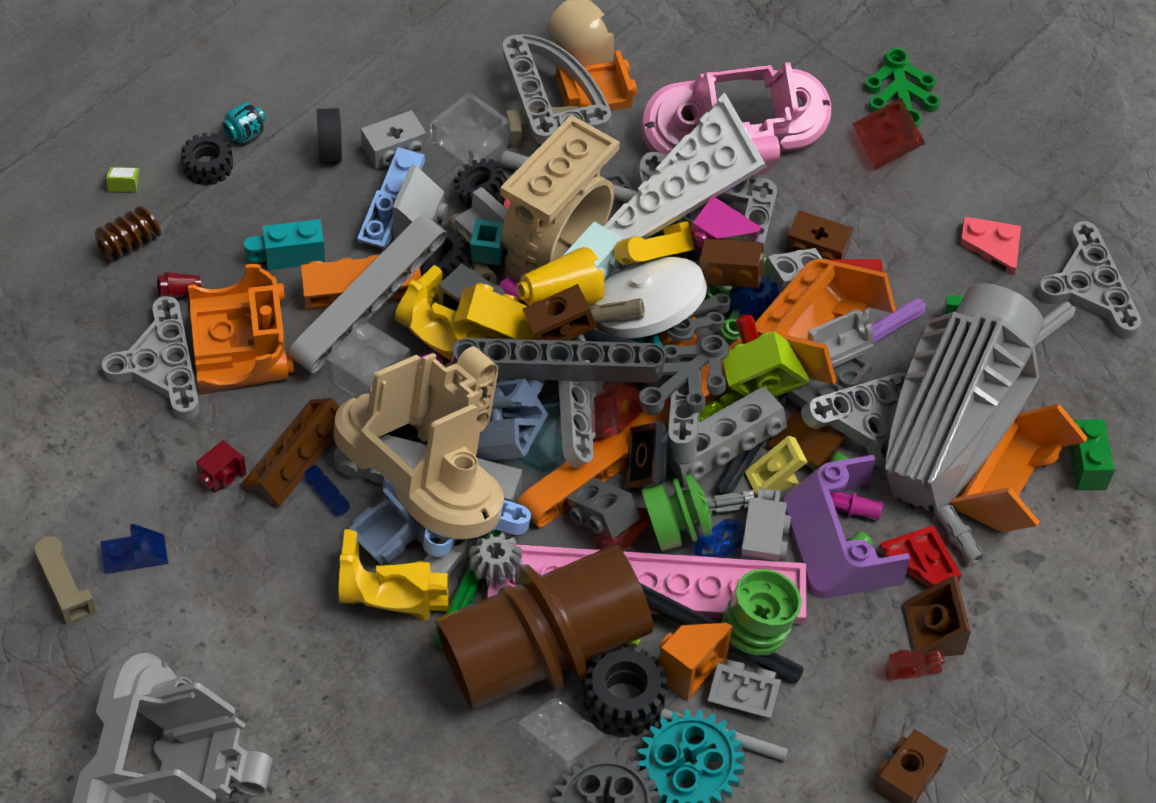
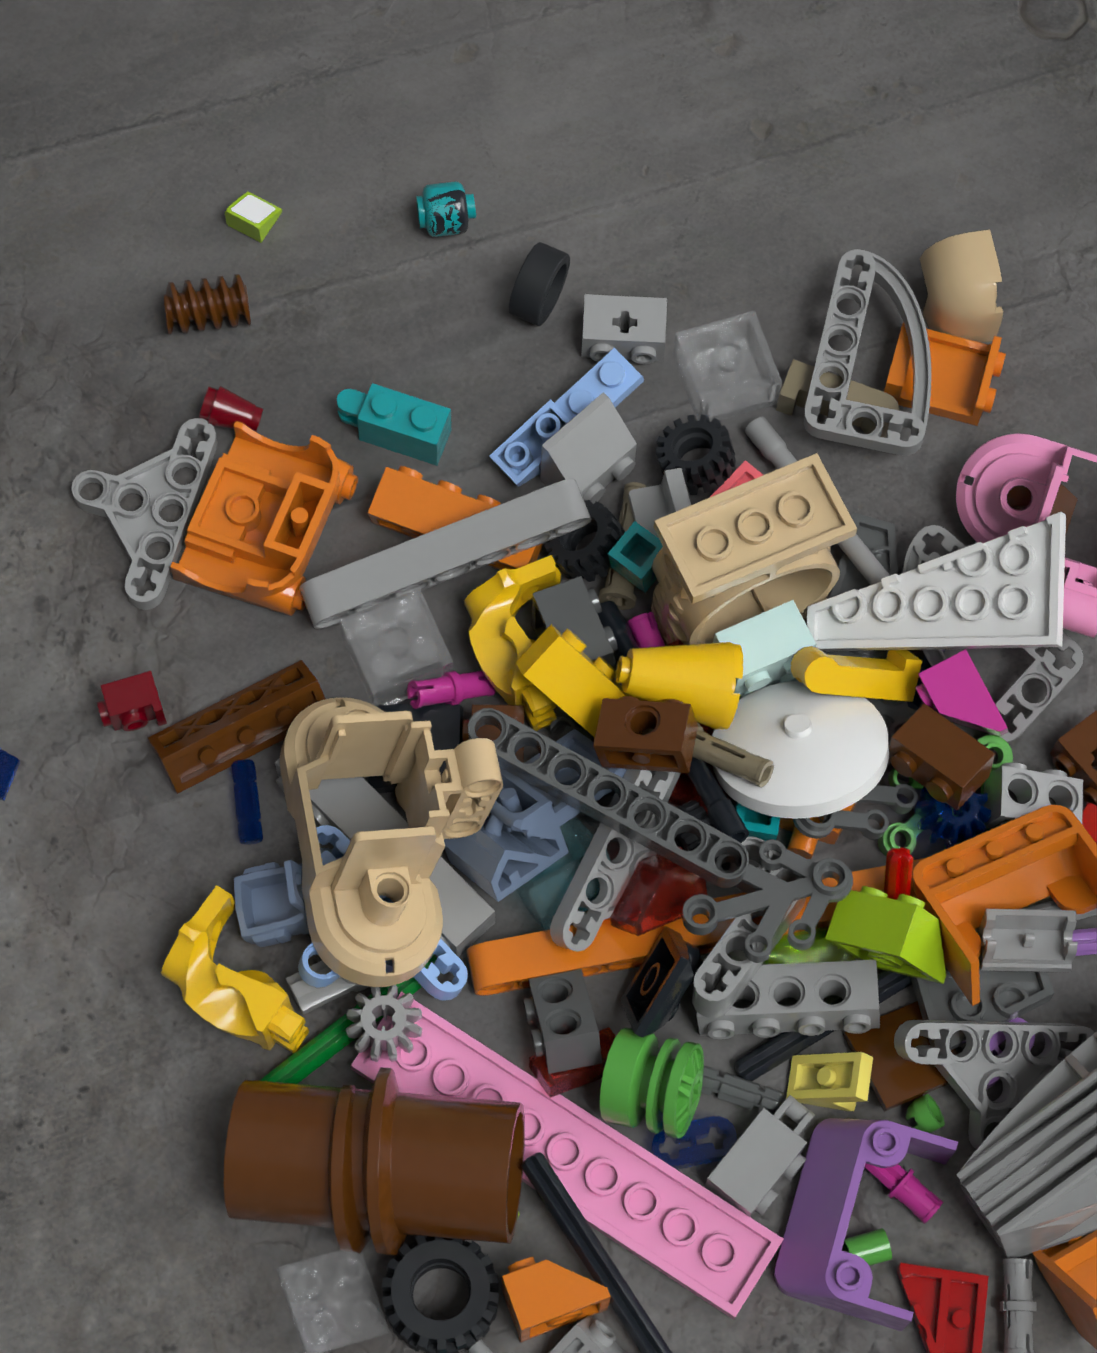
camera: 30 degrees right, 15 degrees up
(207, 171) = (366, 218): black tyre -> none
(762, 611) = (688, 1278): bright green wheel -> none

